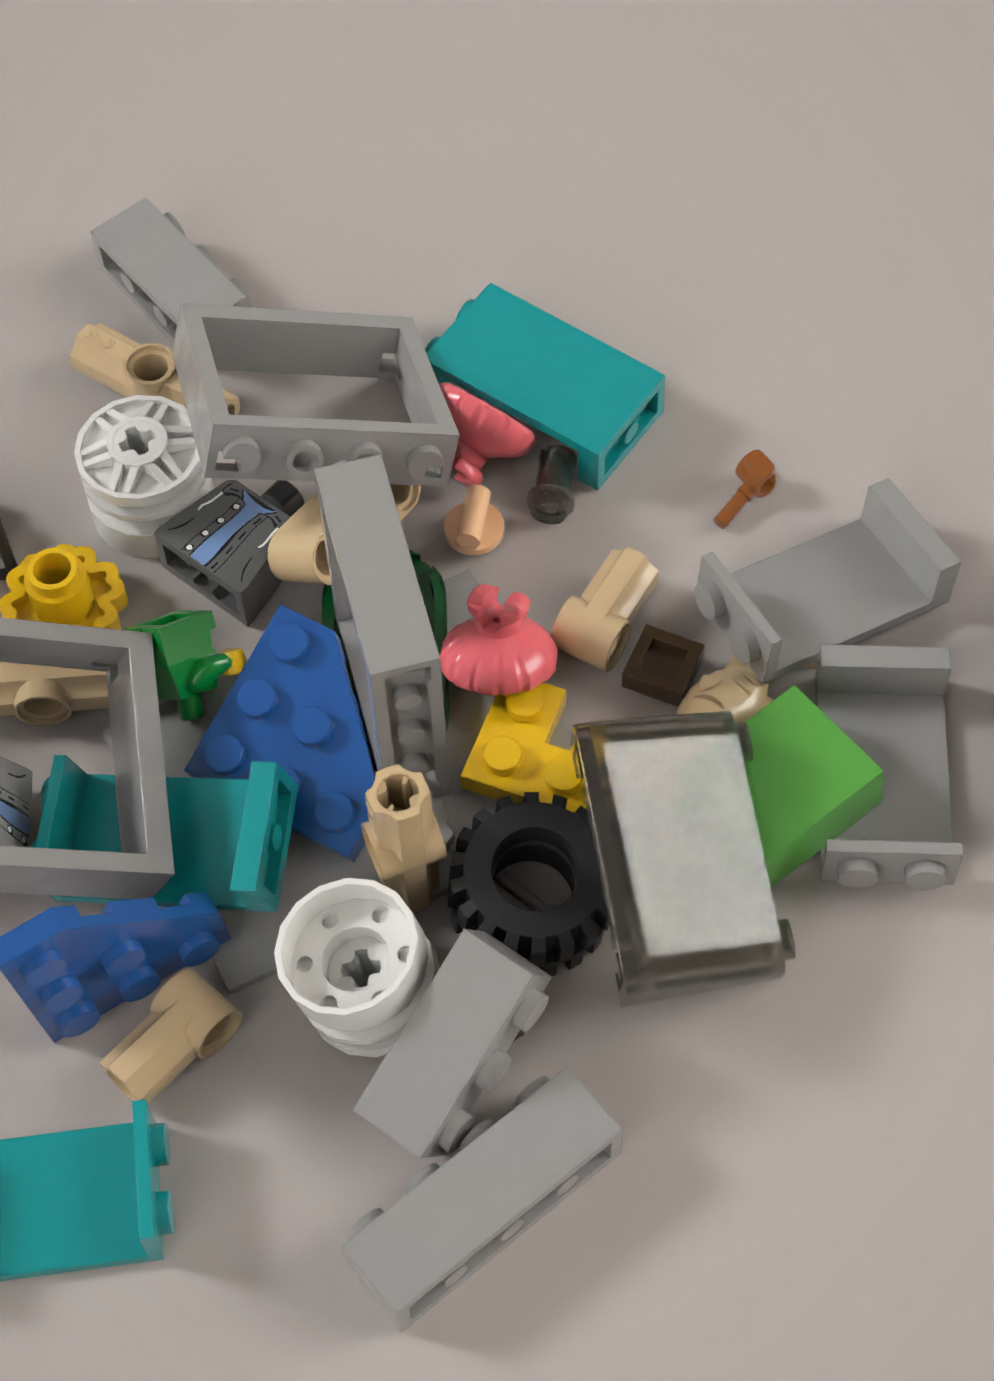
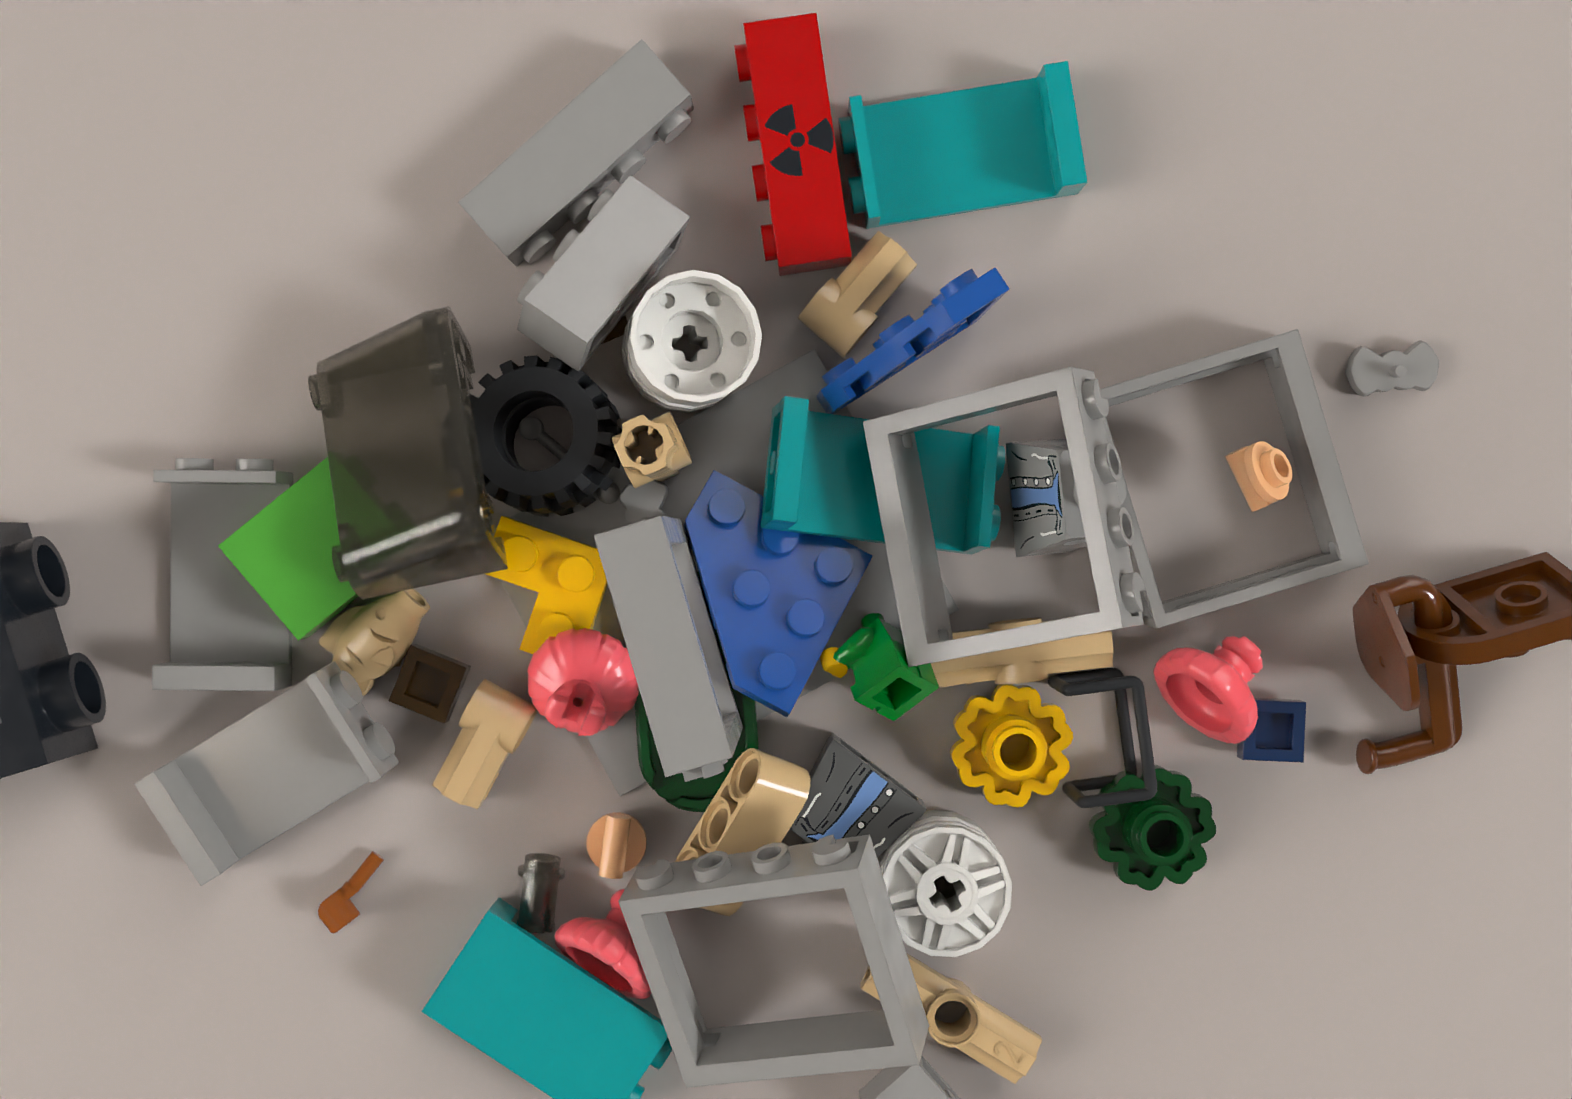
camera: 170 degrees right, 30 degrees up
(225, 1204) = (796, 144): none -> red brick

